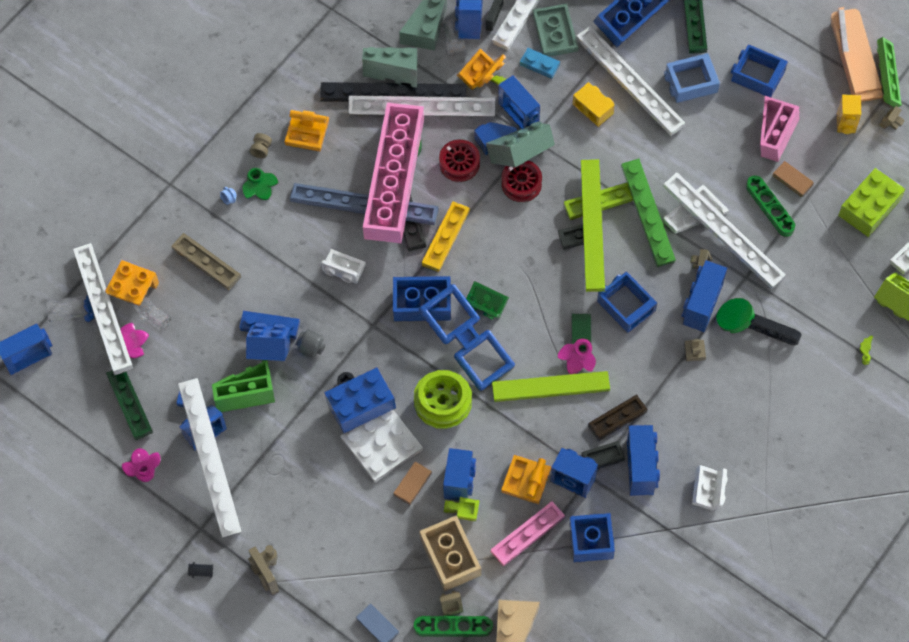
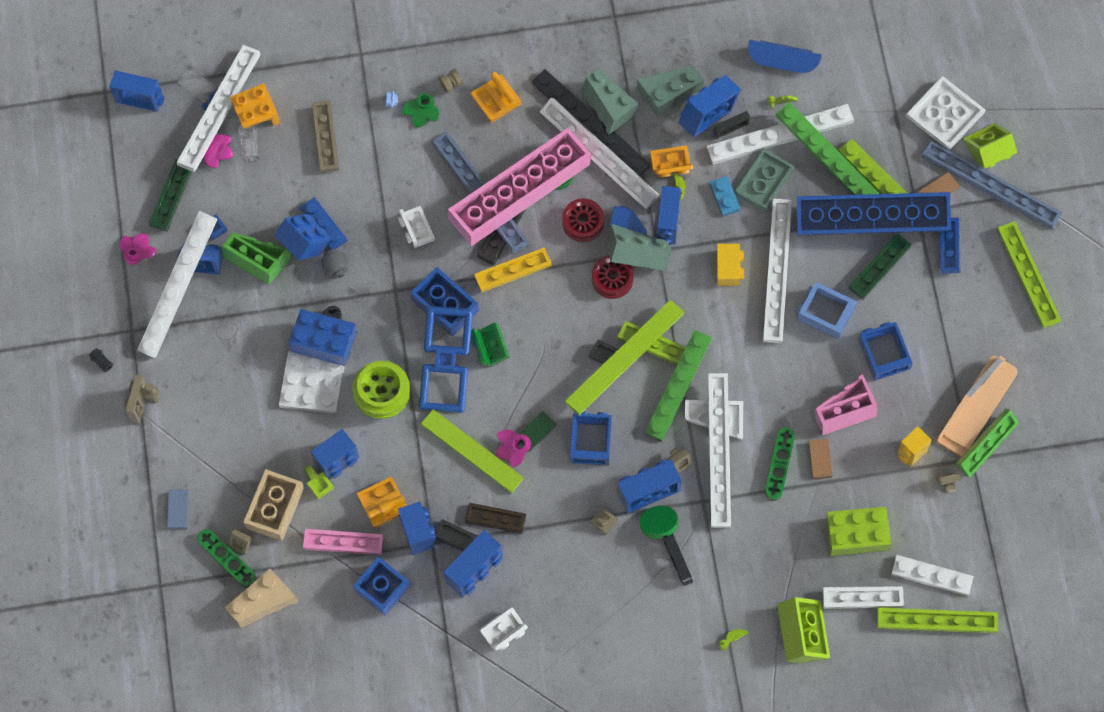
camera: 45 degrees right, 5 degrees up
(412, 483) = (303, 431): medium nougat tile -> none

